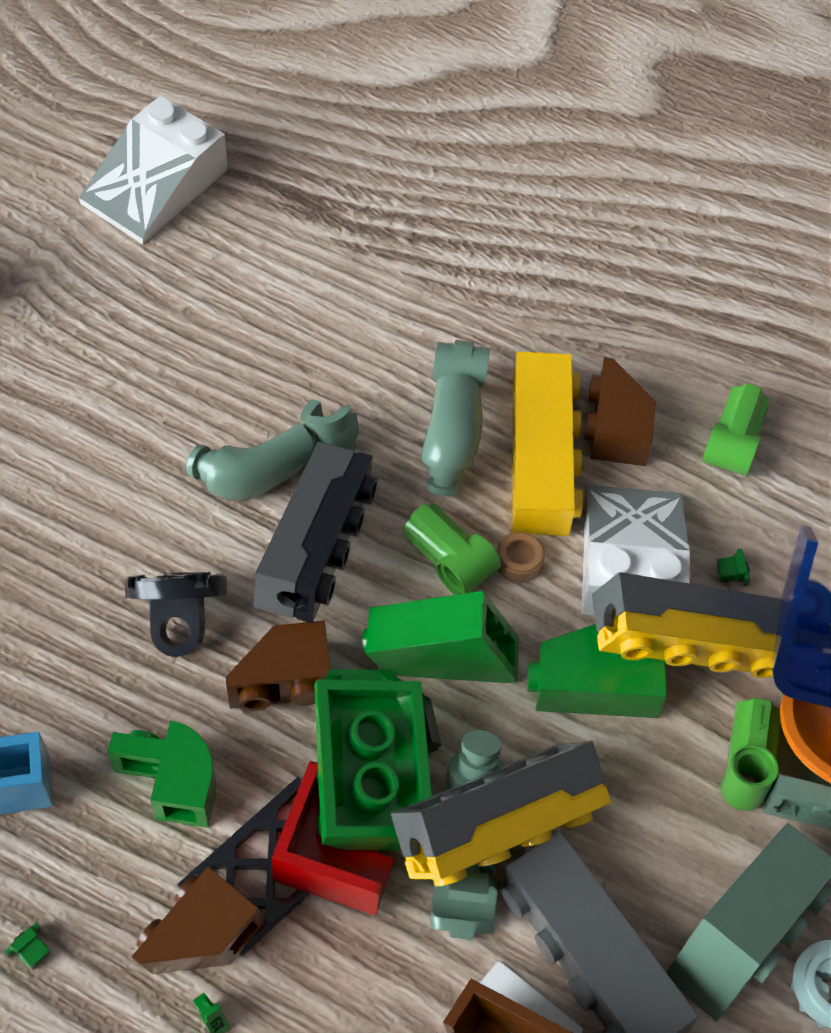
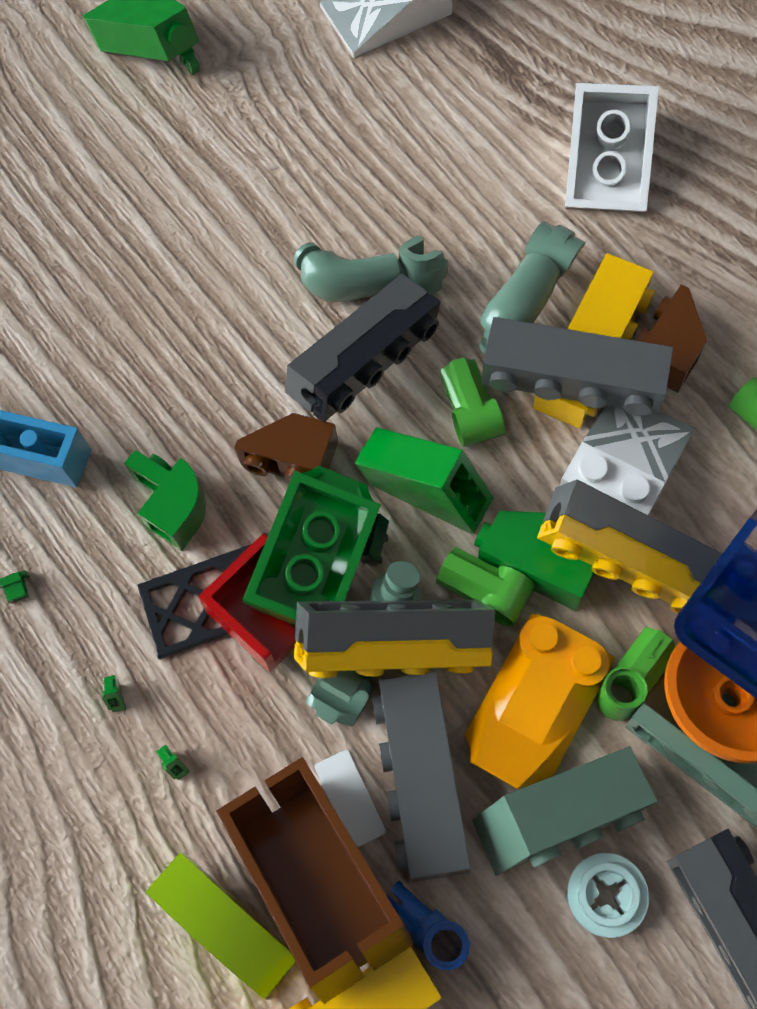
camera: 35 degrees right, 10 degrees up
(176, 596) = (235, 361): black tile -> none
(202, 929) = (135, 625): reddish brown slope -> none
(464, 249) = (611, 147): none -> white slope
(521, 557) = (527, 431): medium nougat tile -> none
(548, 469) = (576, 366): none -> dark grey brick
(550, 723) = (498, 588): none -> bright green piece
(669, 821) = (537, 702): none -> light orange slope
(734, 568) = (707, 511): green piece -> none

